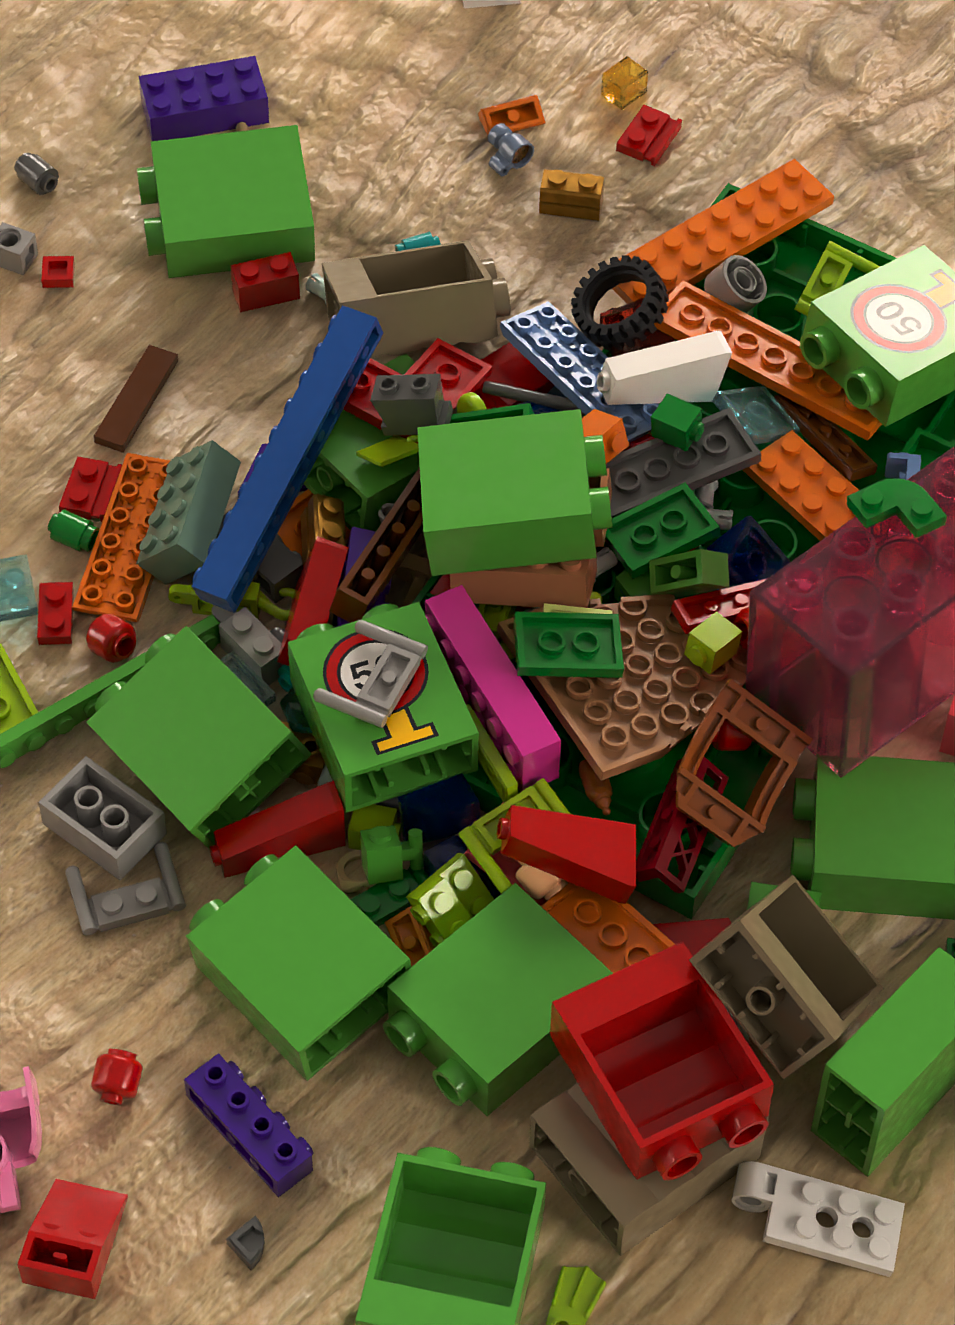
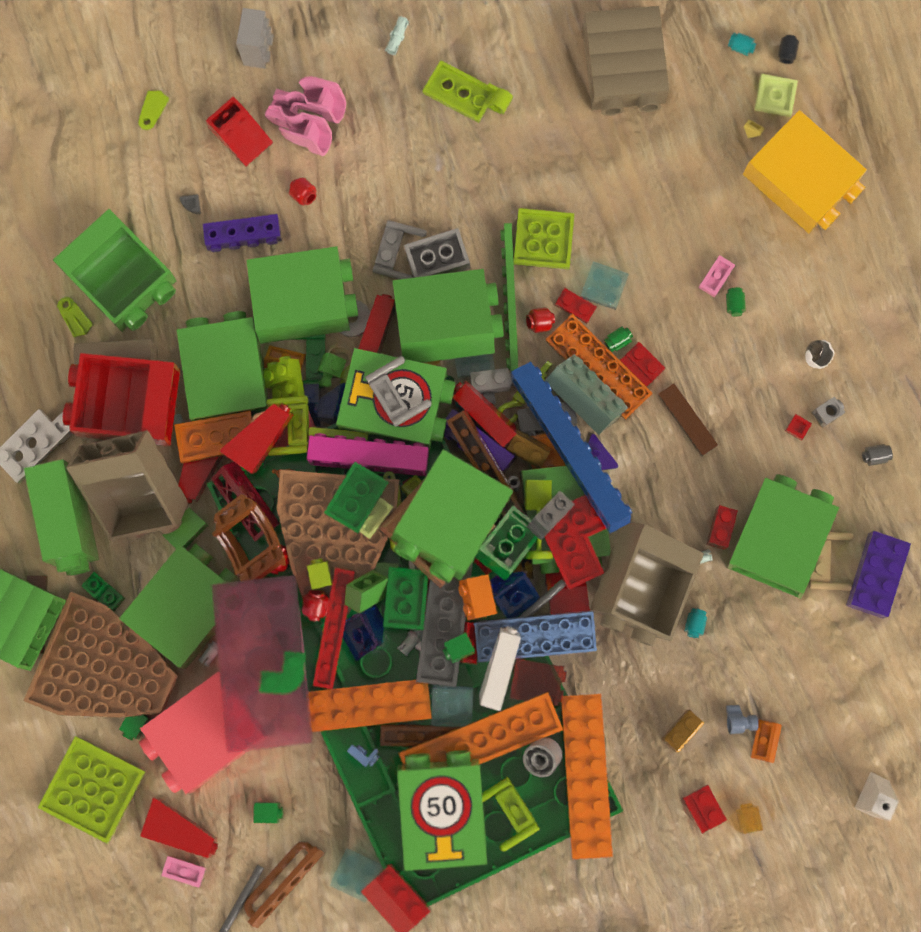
camera: 125 degrees right, 25 degrees up
(633, 326) = (577, 665): black tyre -> none

